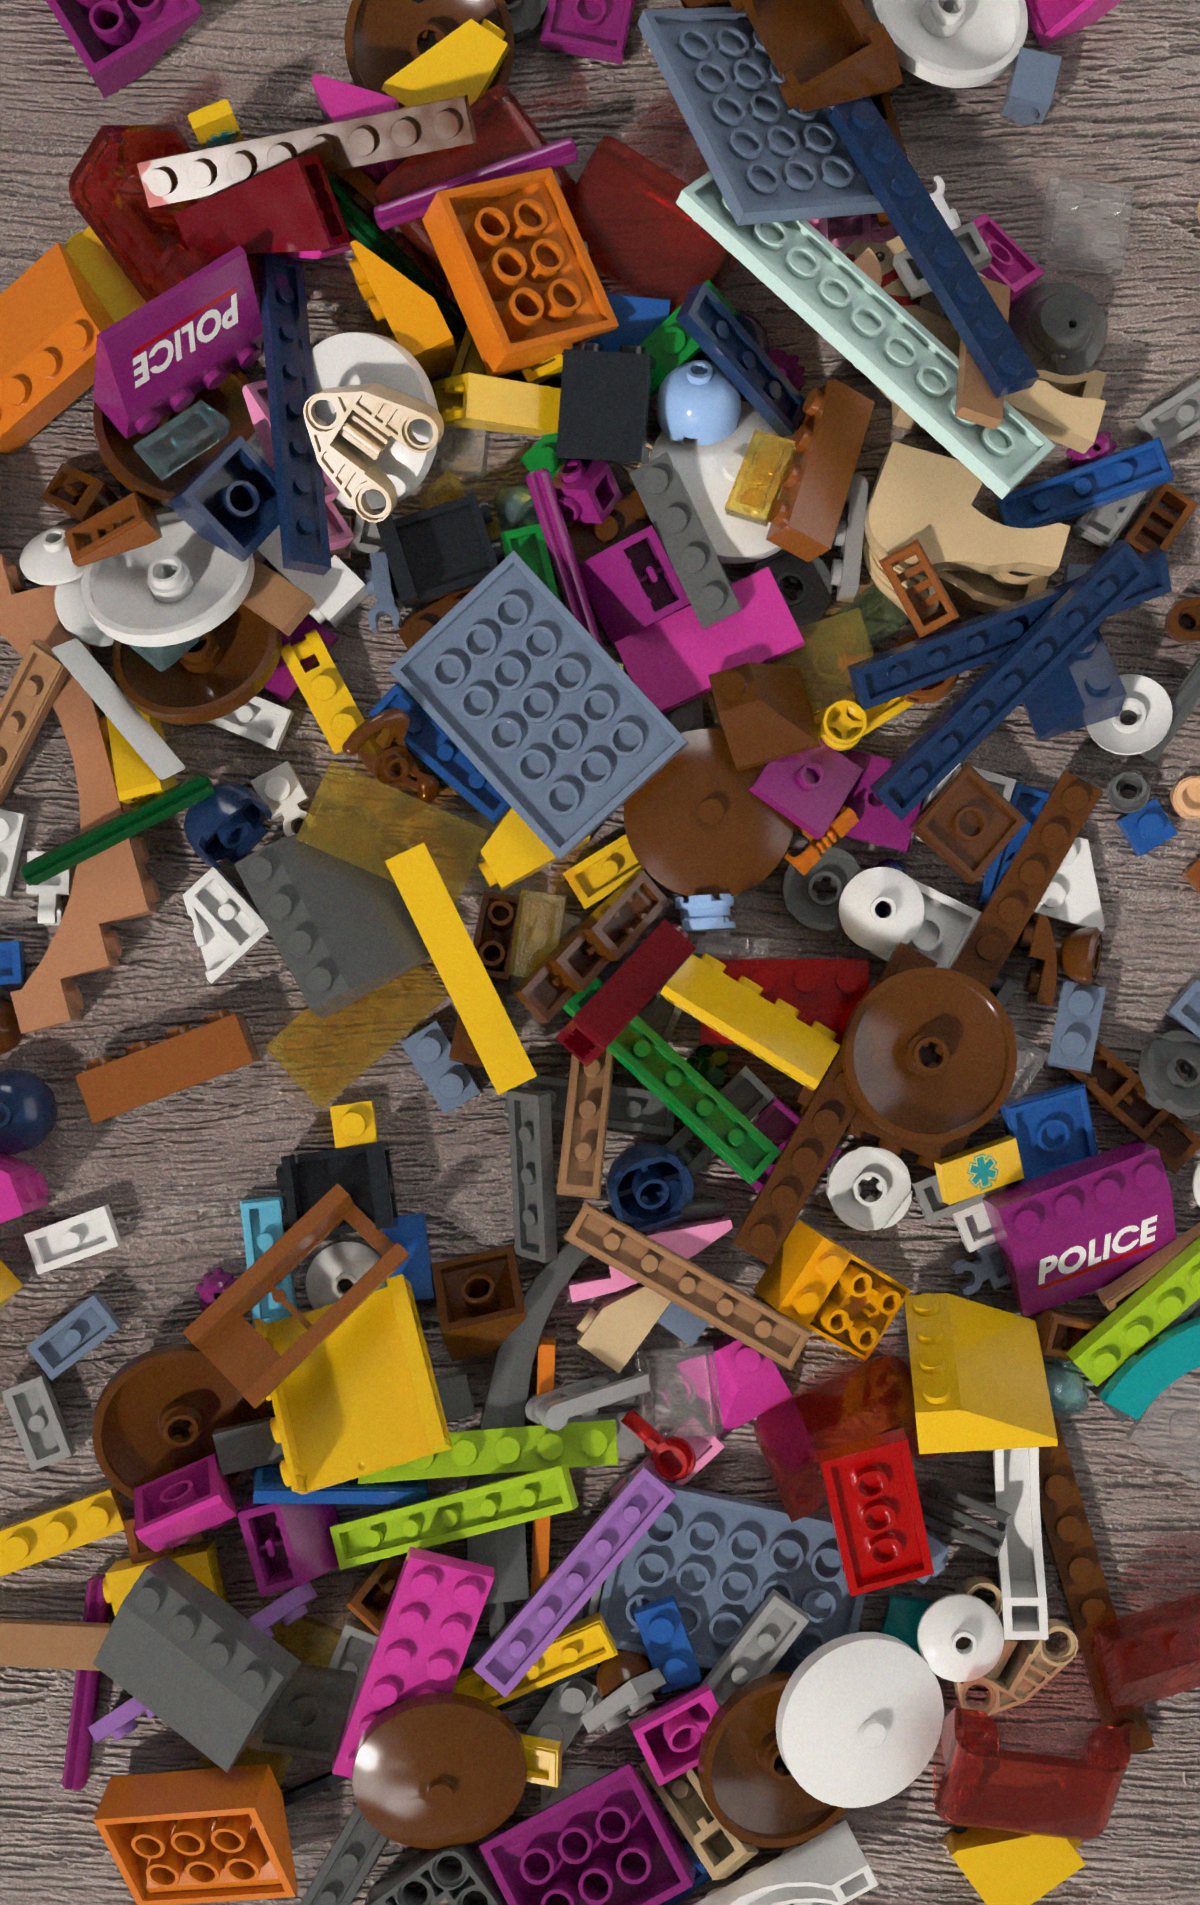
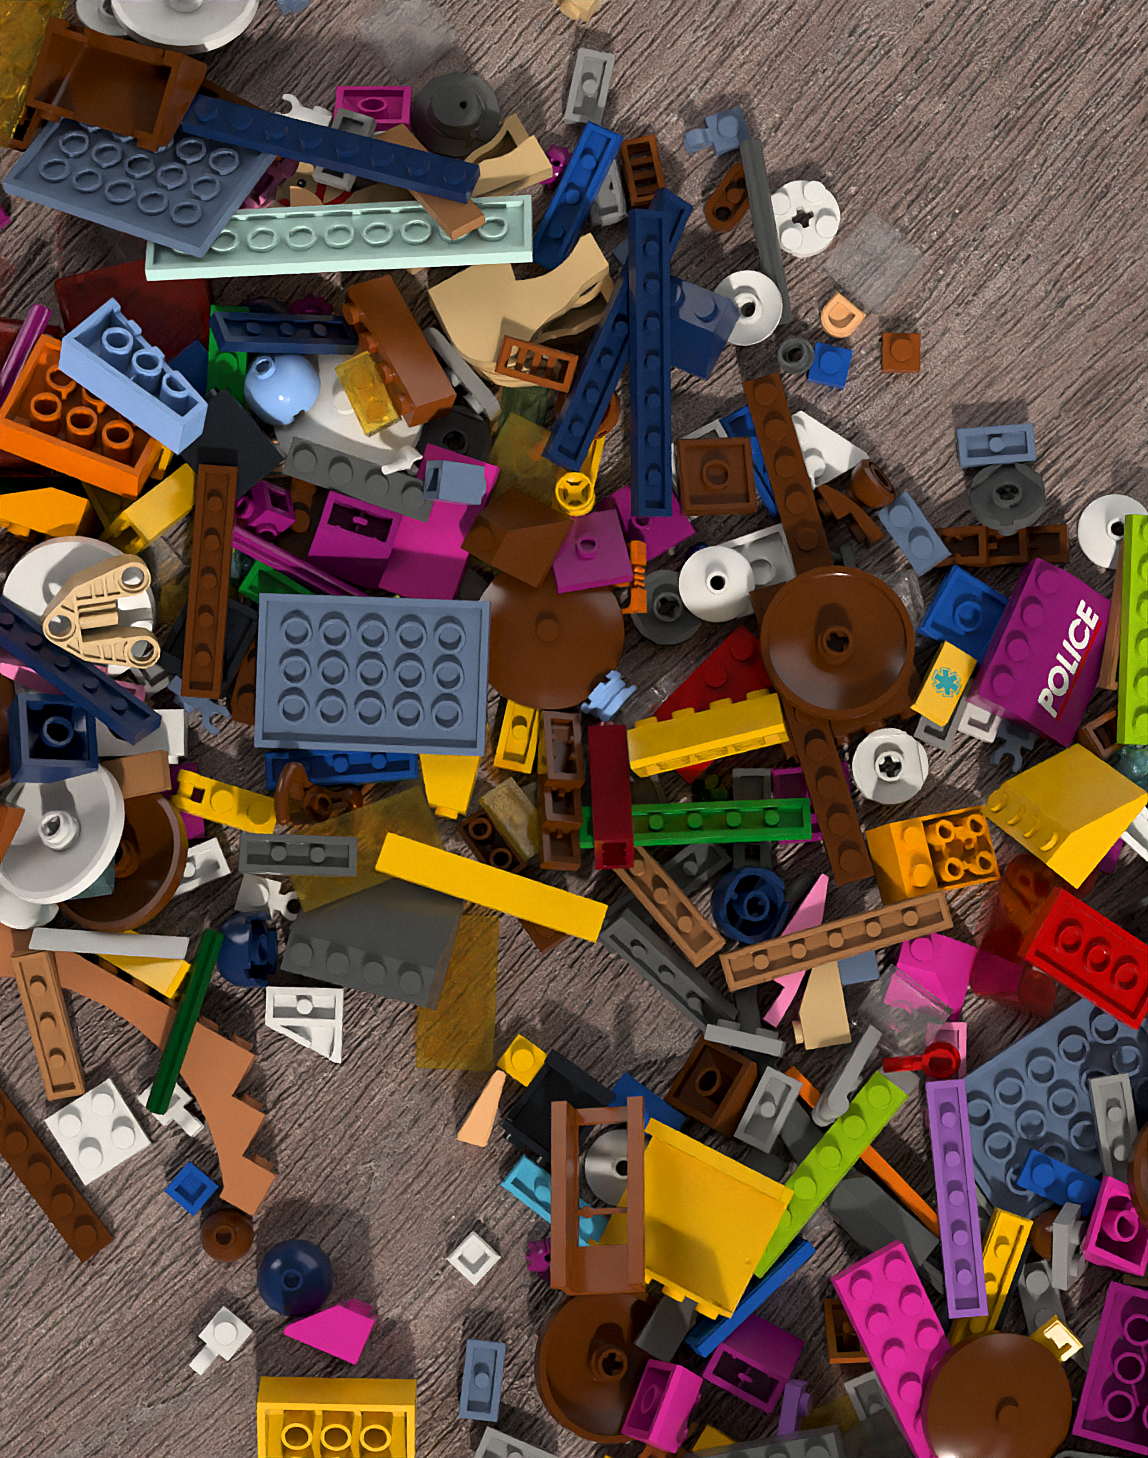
camera: 50 degrees left, 5 degrees down
(73, 1239) = (418, 1318): white plate -> none
(164, 1235) = (473, 1257): none -> white tile
(166, 1067) = (367, 1144): dark orange brick -> none
(271, 1138) = (480, 1120): none -> light nougat slope
(333, 788) = (297, 855): none -> dark grey plate
(446, 1079) = (548, 971): sand blue plate -> none
(454, 1516) = (838, 1235): lime plate -> none
(482, 499) = (209, 581): none -> reddish brown plate
(499, 1361) = (768, 1109): none -> light grey plate
(529, 1272) = (729, 1033): none -> light grey plate
(584, 267) = (132, 377): none -> light blue wedge
(735, 561) = (404, 461): none -> white hand
(756, 618) = (454, 482): none -> sand blue brick

